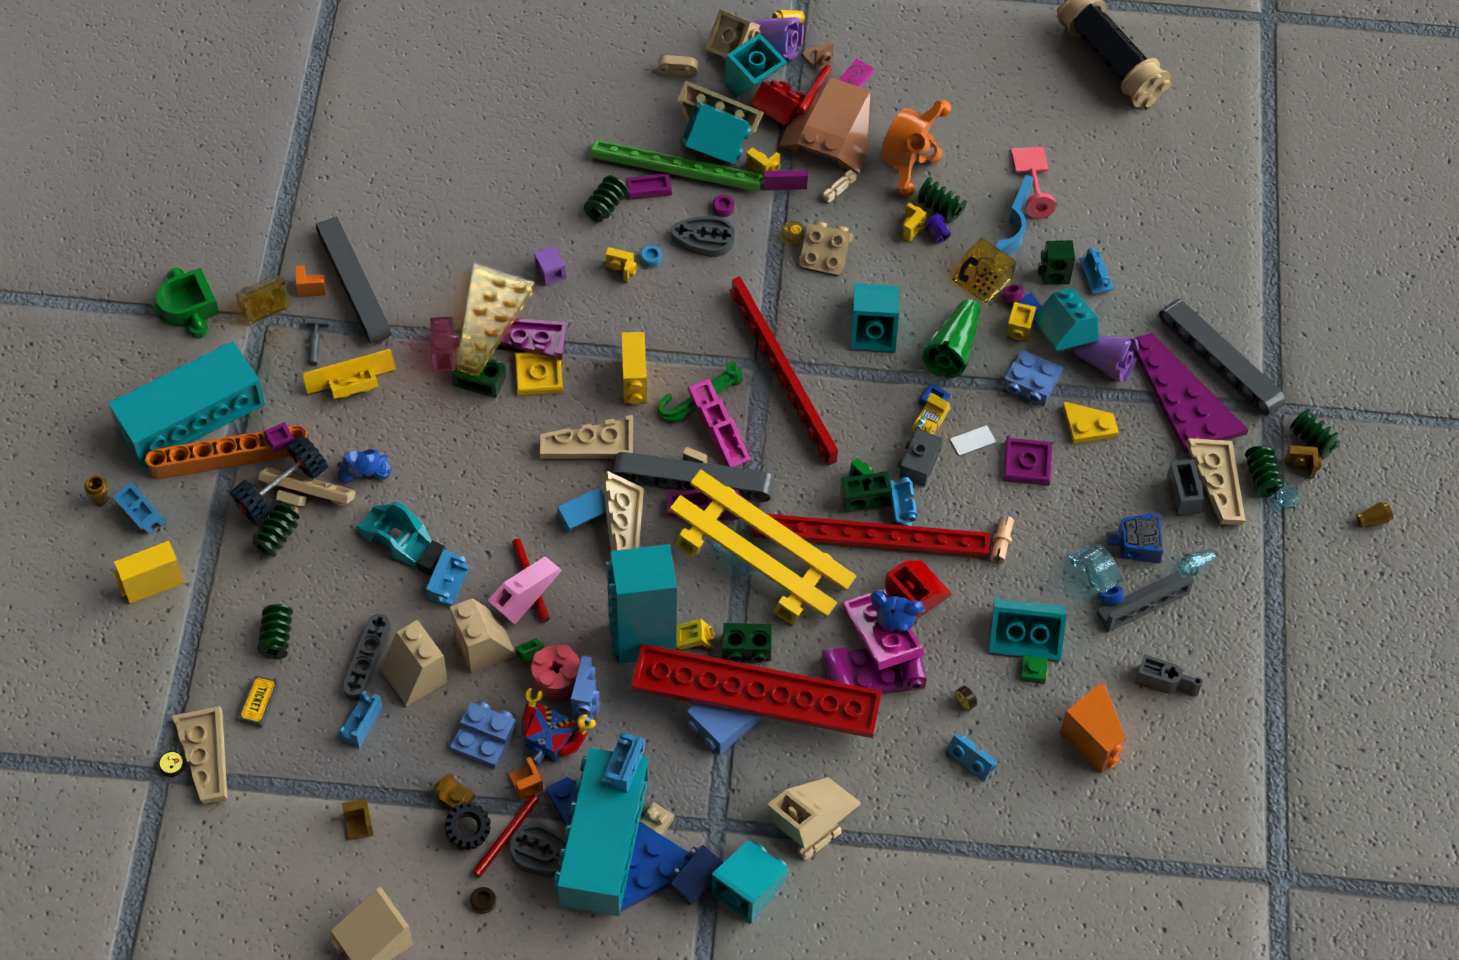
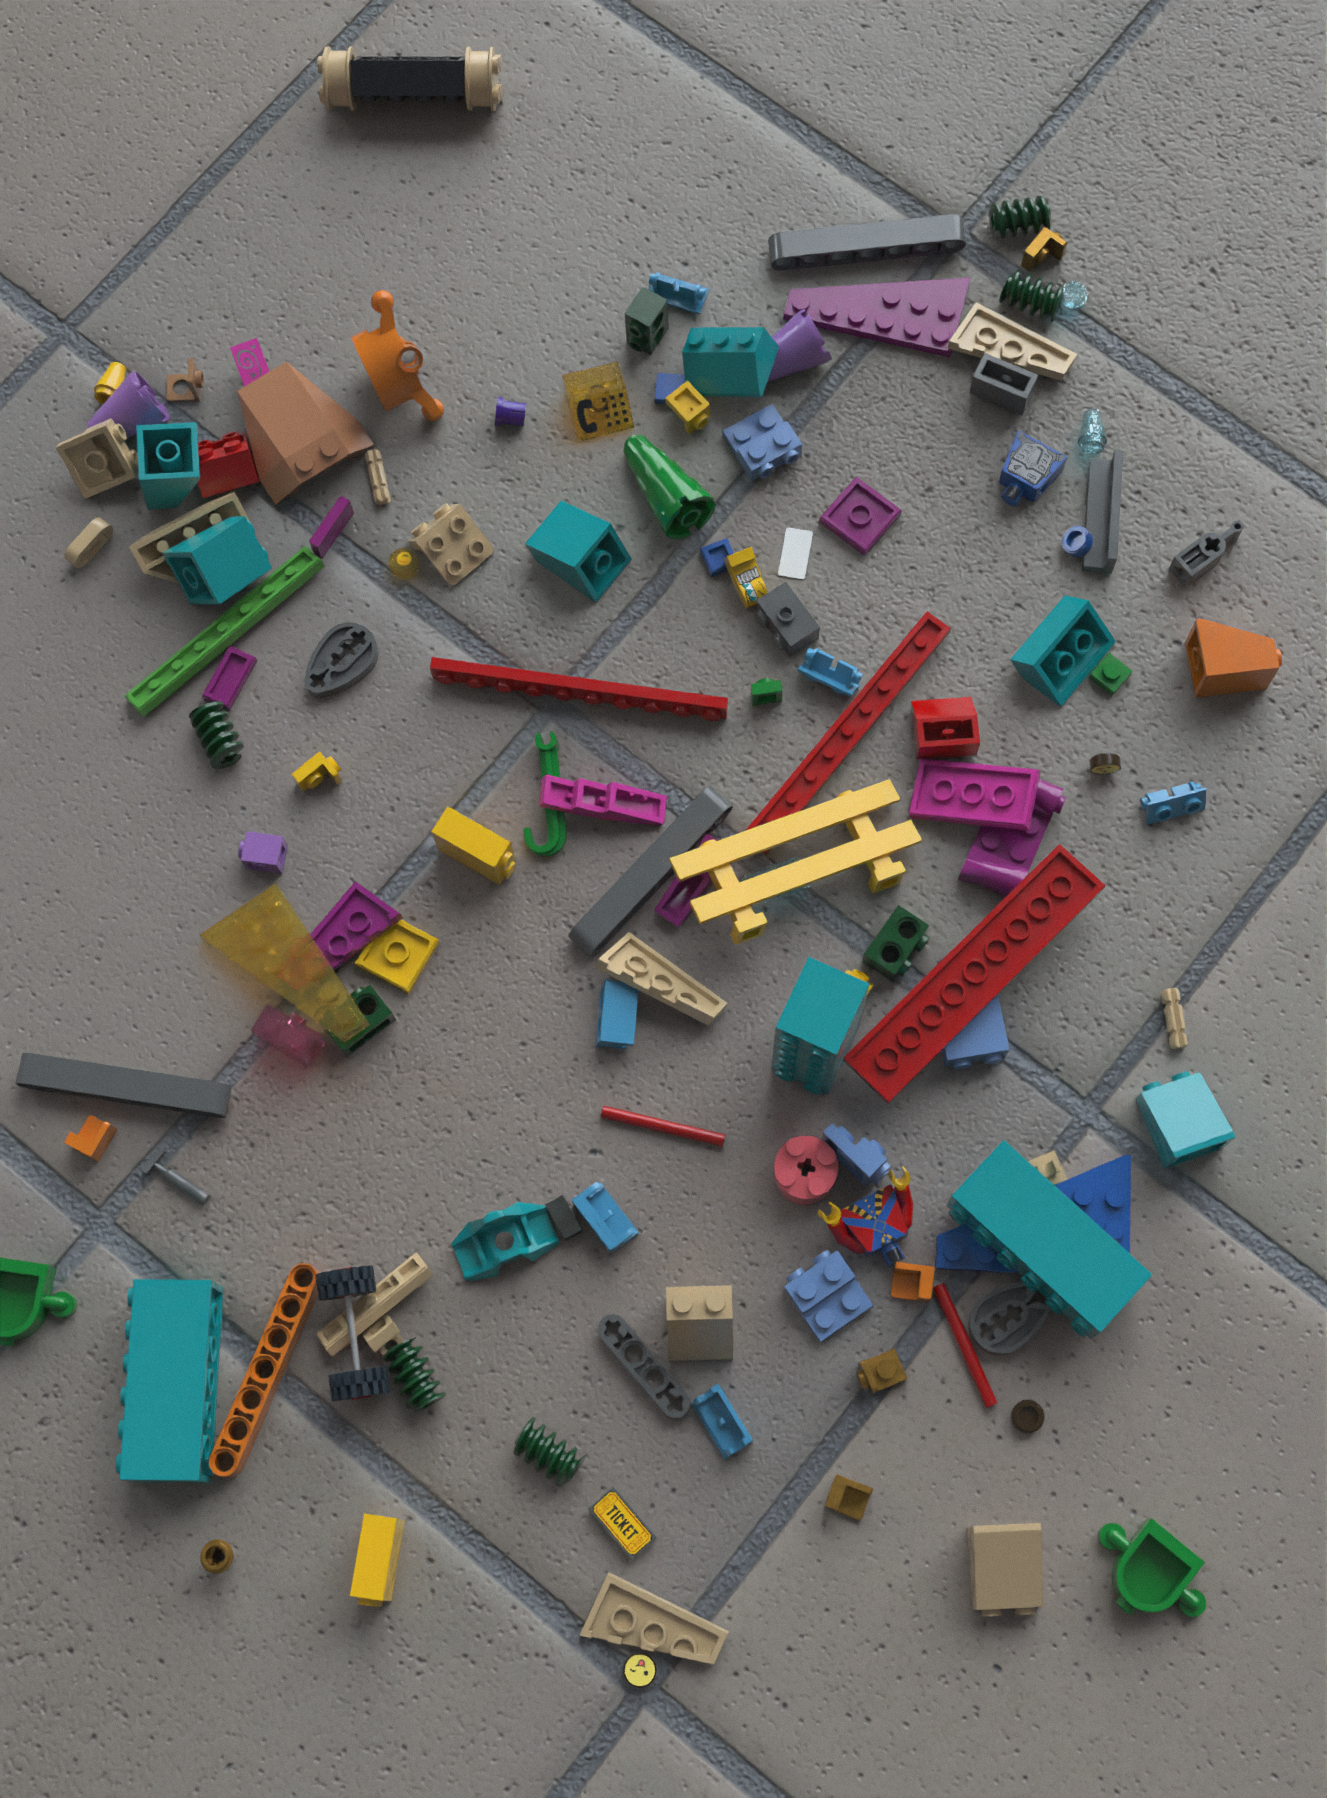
camera: 50 degrees left, 15 degrees up
(138, 507) = (274, 1519): dark azure hinge -> none
(263, 299) = (78, 1206): clear yellow slope -> none
(279, 437) = (296, 1300): magenta tile -> none
(350, 375) = (260, 1167): yellow bracket -> none
(363, 464) = (389, 1223): blue hair -> none
(460, 839) = (952, 1376): black tyre -> none
(480, 635) = (709, 1225): tan slope -> none
(523, 589) = (681, 1140): bright pink slope -> none
(528, 649) = (756, 1180): green plate -> none
(590, 441) = (534, 943): tan wing -> none
(624, 762) = (1000, 1170): dark azure hinge -> none
(651, 256) = (326, 734): dark azure tile -> none
(692, 455) = (629, 855): tan tile -> none
(695, 874) = (1145, 1172): dark blue brick -> none
(723, 205) = (314, 615): magenta tile -> none
(759, 162) = (290, 539): yellow bracket -> none
(811, 809) = (1143, 1002): tan slope -> none
(814, 89) = (235, 419): red bar -> none
(866, 491) = (796, 702): dark green brick -> none
(904, 613) = (964, 767): blue hair -> none
(914, 221) = (481, 424): yellow bracket -> none
(939, 201) = (477, 384): dark green piece -> none
(1002, 539) = (939, 604): light nougat pin -> none
(1013, 293) = (646, 392): magenta tile -> none
(1017, 218) = (548, 321): dark azure piece -> none
(1034, 160) = (487, 260): coral piece -> none
(1089, 424) = (855, 425): yellow wing -> none
(1099, 567) = (1037, 529): clear light blue brick -> none
(1377, 514) = (1149, 228): pearl gold cone -> none

